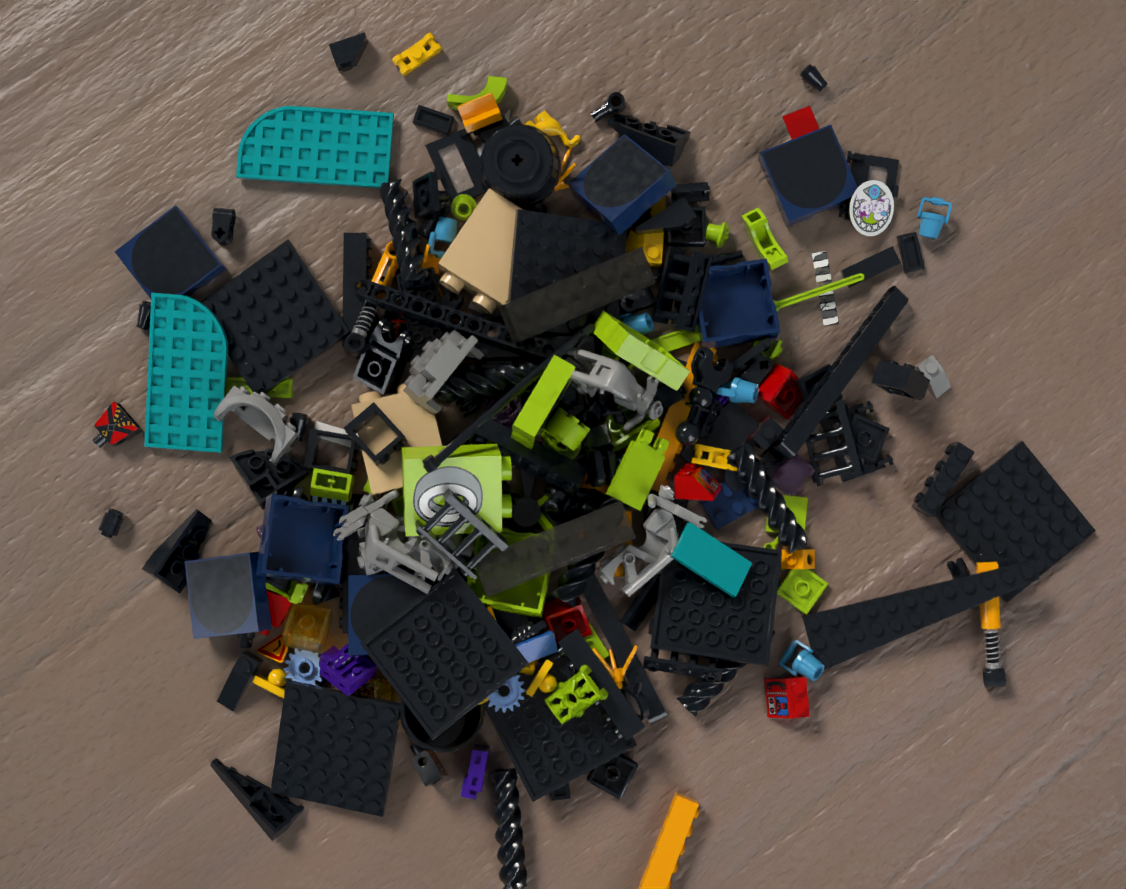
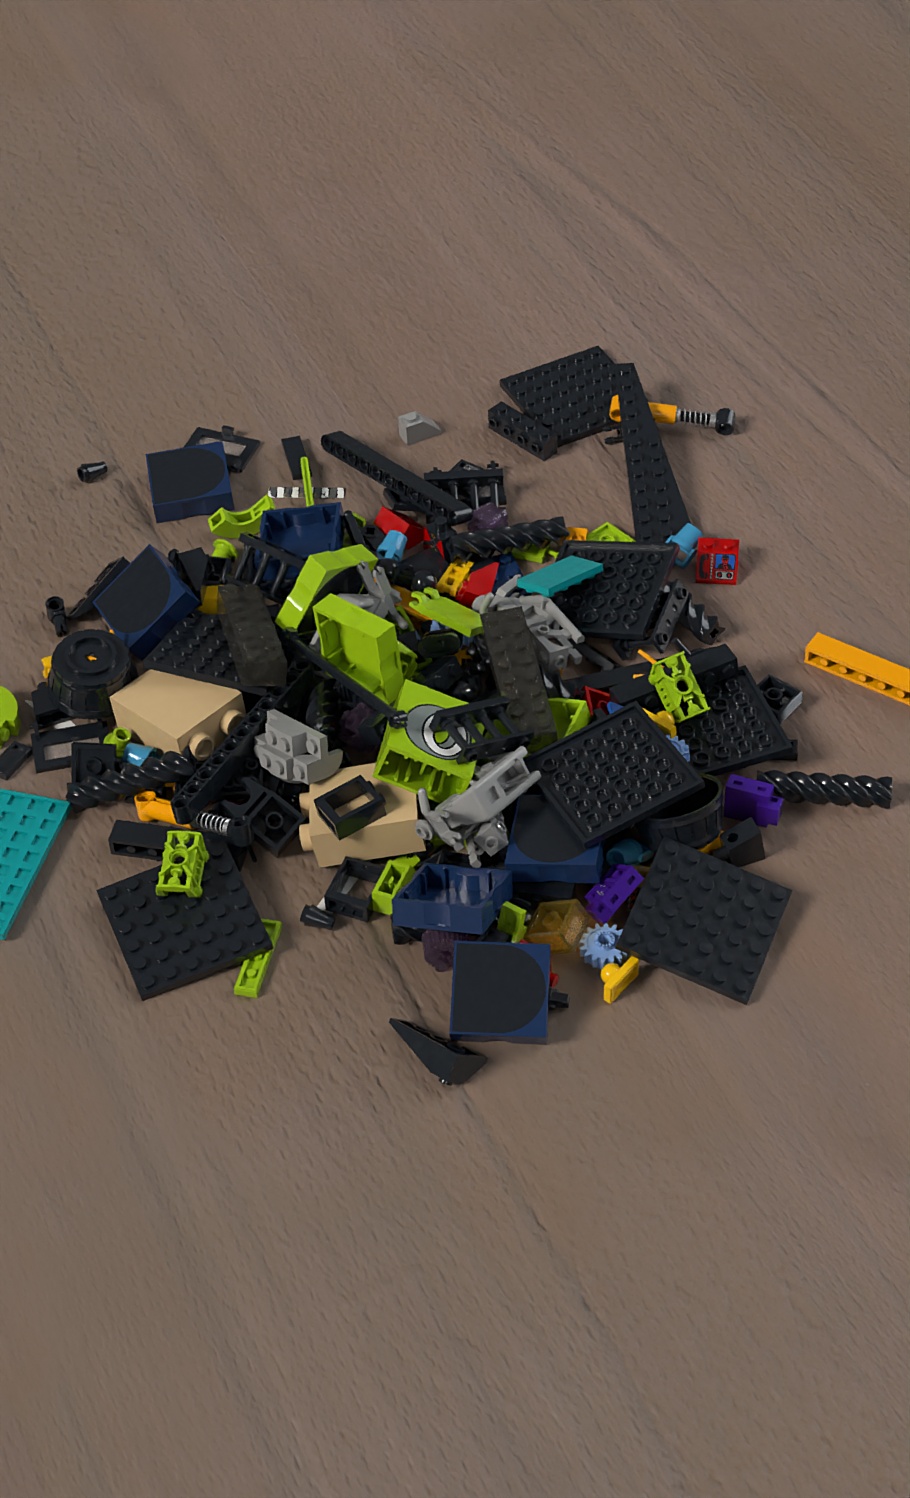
camera: 75 degrees left, 40 degrees down
(111, 523) = (382, 1113): black brick -> none
(115, 426) = (262, 1092): torso -> none
(144, 315) = (134, 1045): black cone -> none
(170, 256) = (78, 1009): black tile -> none
(185, 375) = (224, 1005): teal plate -> none
(223, 222) = (53, 955): black piece -> none
(239, 679) = (605, 1010): black slope -> none
(262, 416) = (295, 941): light grey piece -> none
(267, 478) = (366, 954): black brick -> none
(268, 809) = (762, 1010): black wedge -> none
(274, 649) = (574, 968): piece -> none
(304, 315) = (192, 865): none -> lime piece
(479, 112) = (23, 707): light orange panel -> none
(800, 122) = (134, 488): red sticker -> none
(871, 208) = (239, 441): sticker -> none
(901, 379) = (416, 436): black hinge -> none
(910, 252) = (291, 429): black tile -> none
(932, 223) = (266, 409): dark azure piece -> none

